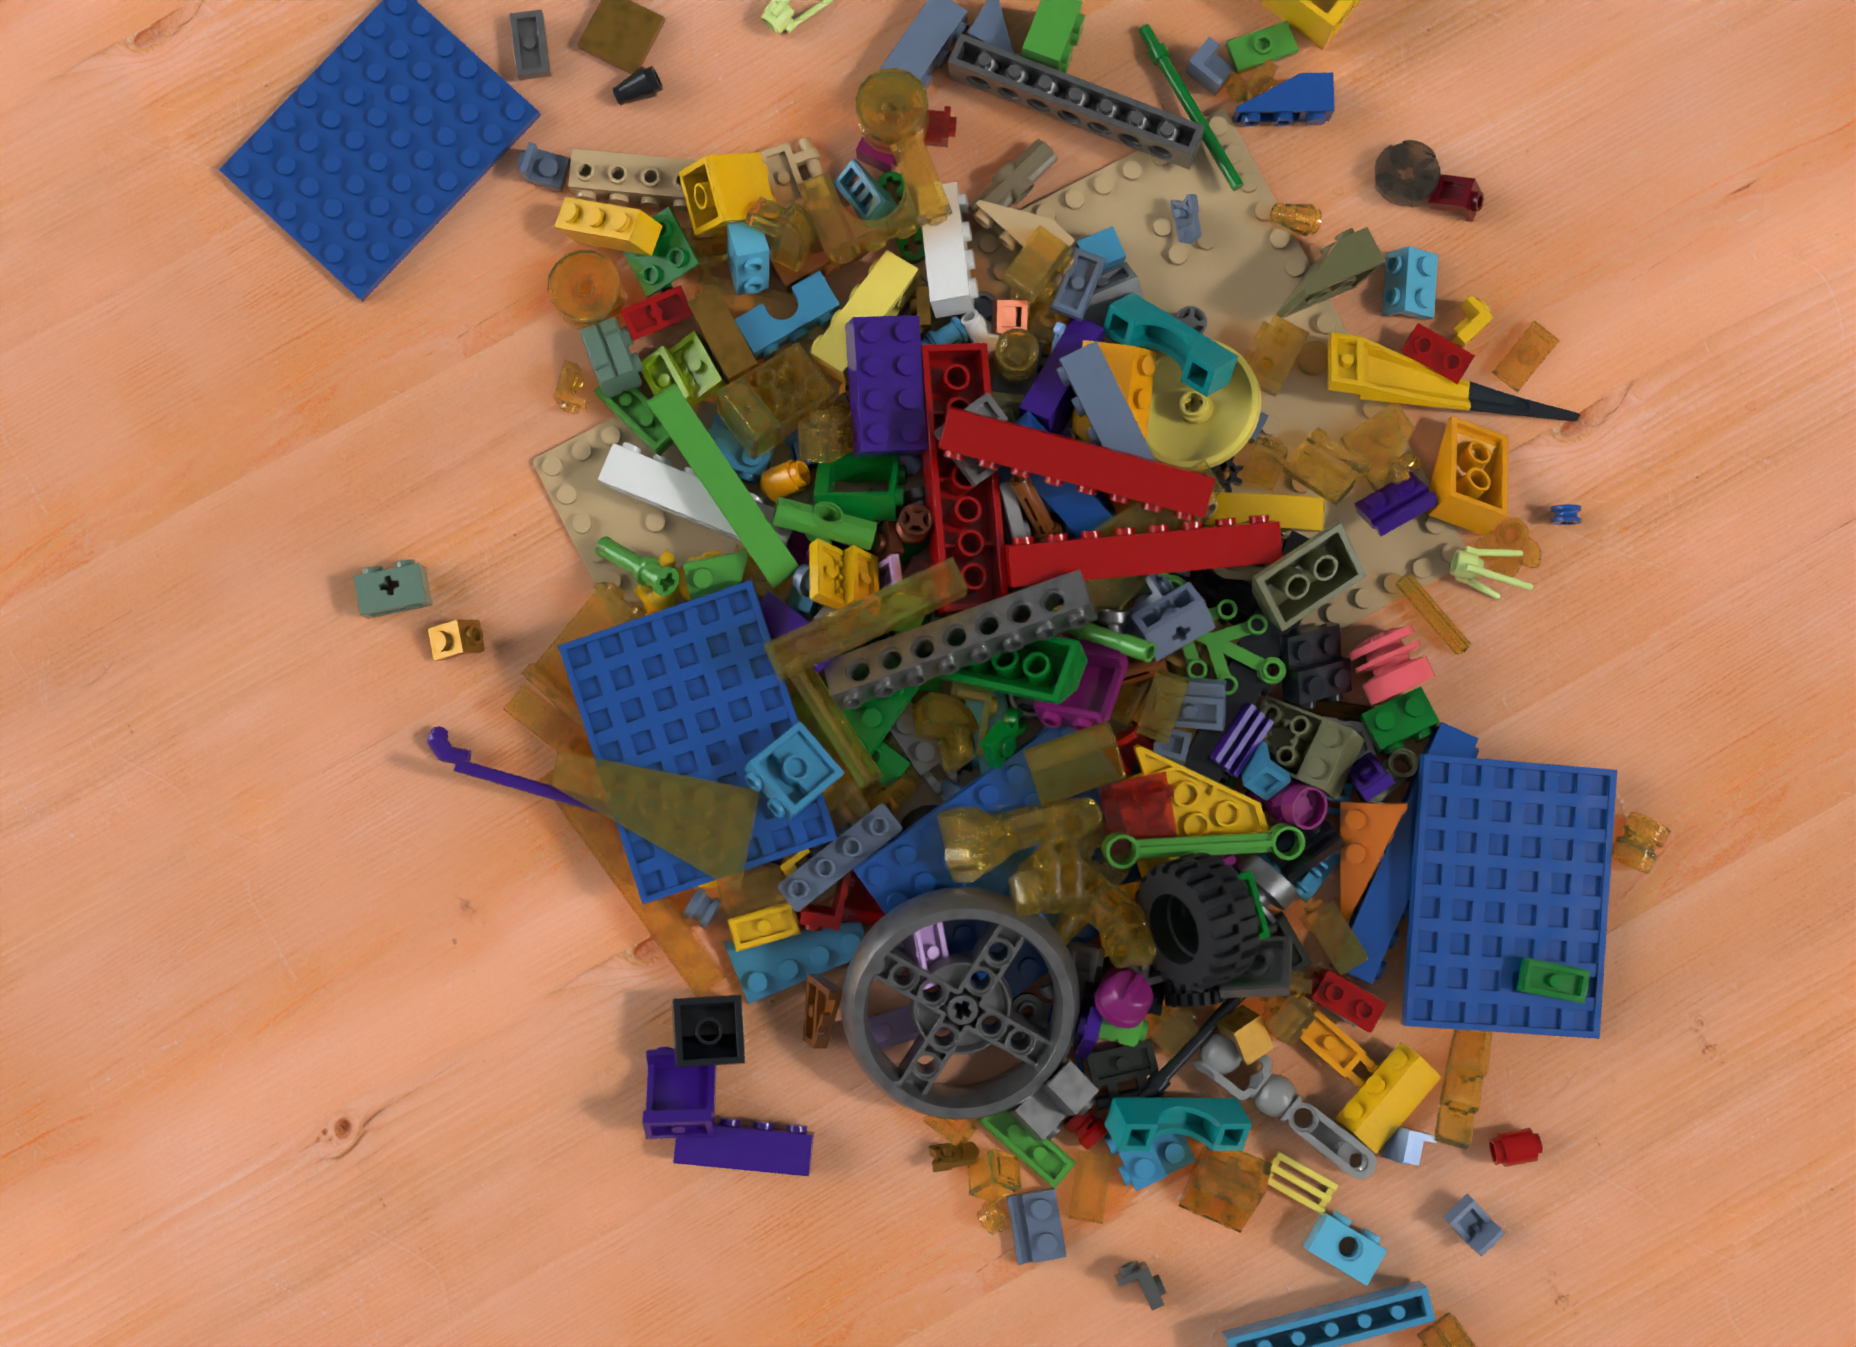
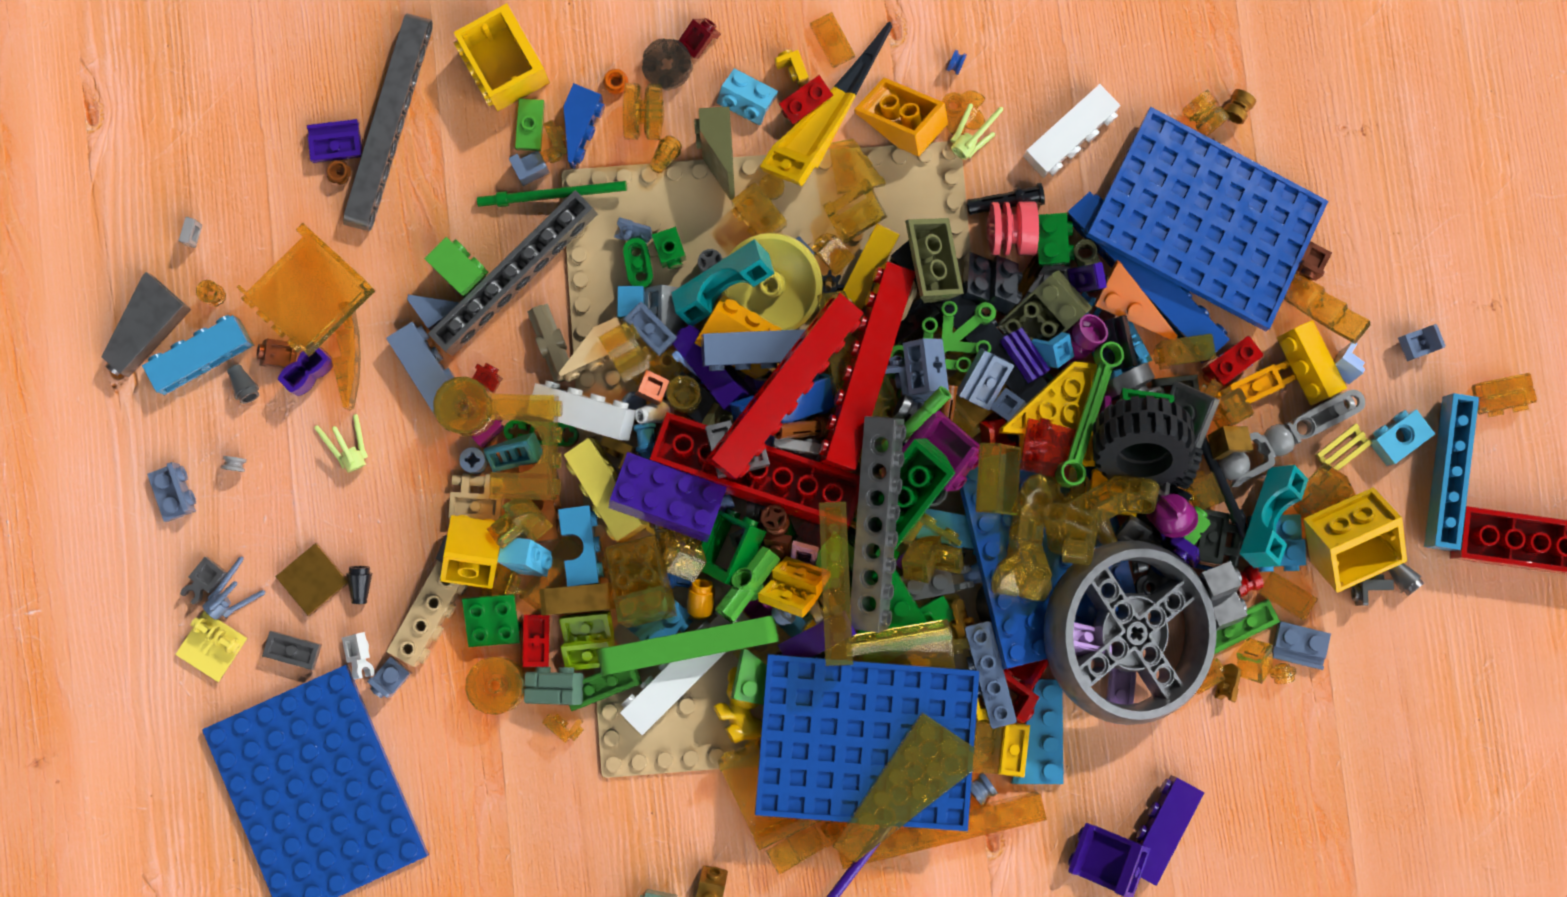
camera: 70 degrees left, 0 degrees up
(558, 118) = (356, 652): none -> white plate
(608, 226) = (457, 649): yellow brick -> none
(645, 569) = (724, 728): bright green pin -> none
(708, 1031) = (1074, 822): black slope -> none
(792, 772) = (921, 682): dark azure plate -> none
(820, 1010) = (1090, 734): dark orange wing -> none
(837, 160) = (478, 460): none -> sand blue wheel
(1000, 740) = (957, 524): green plate -> none
(1149, 240) = (638, 264): none -> green plate
(1163, 706) = (980, 399): clear yellow plate -> none
(1174, 1320) = (1406, 578): none -> flat silver cone
(1185, 268) = (669, 248): none -> green brick
(1192, 1236) = (1355, 539): none -> yellow container
(1335, 167) = (643, 111): none -> clear yellow wheel
(1362, 115) = (615, 74): none -> orange plate
(1395, 504) = (901, 175): dark purple plate -> none
(1399, 467) = (878, 162): clear yellow arm -> none
(1433, 614) = (987, 183): clear yellow axle -> none
(1442, 668) = (982, 204): none -> black pin
(1515, 1050) = (1314, 262): none -> copper bracket
(1515, 1147) = (1379, 290): red brick -> none
(1544, 689) = (1071, 131): none -> white brick
(1553, 980) = (1278, 214): green plate -> none
(1668, 880) = (1240, 104): none -> pearl gold wheel

